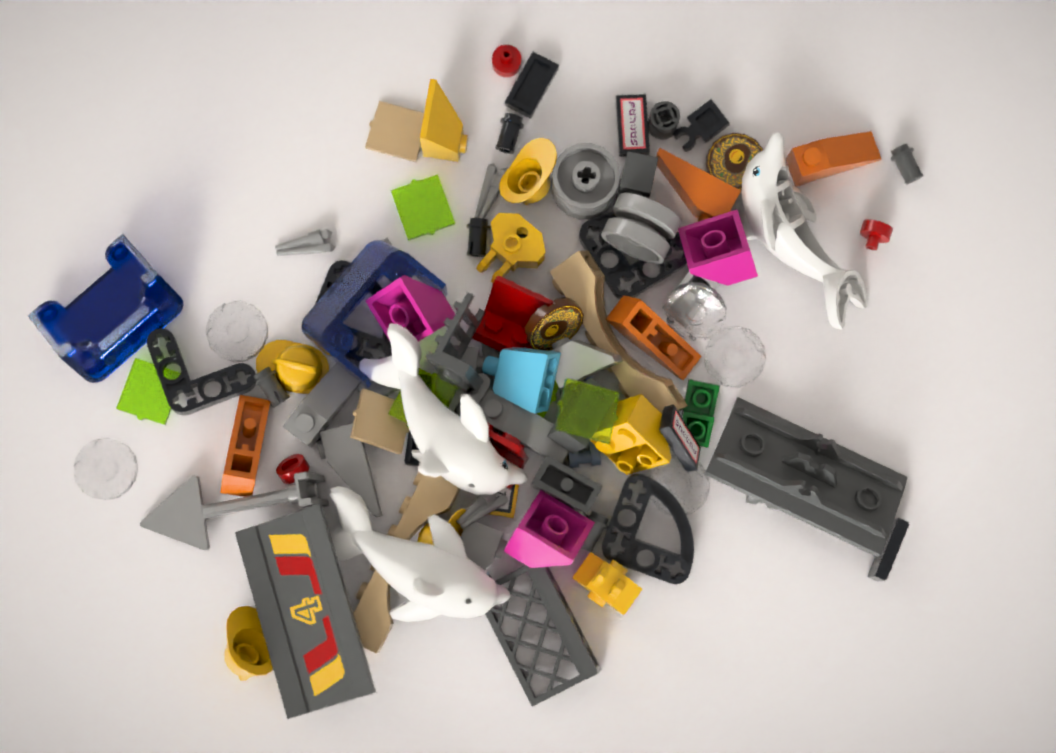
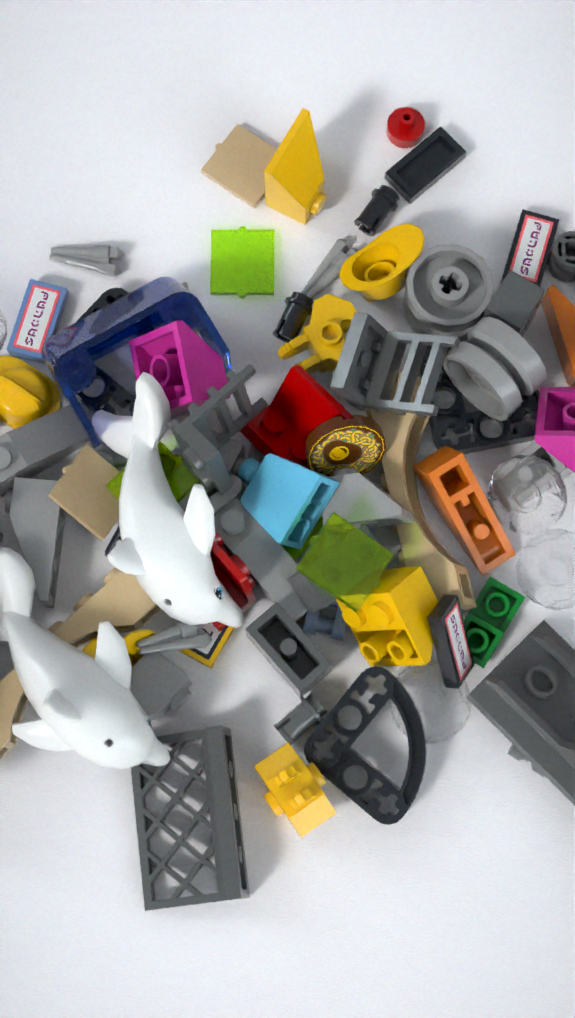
camera: 25 degrees right, 5 degrees down
(287, 306) = (37, 319): none -> tile
(548, 534) = (242, 698): dark pink slope -> none
(551, 255) = (373, 361): none -> dark grey plate

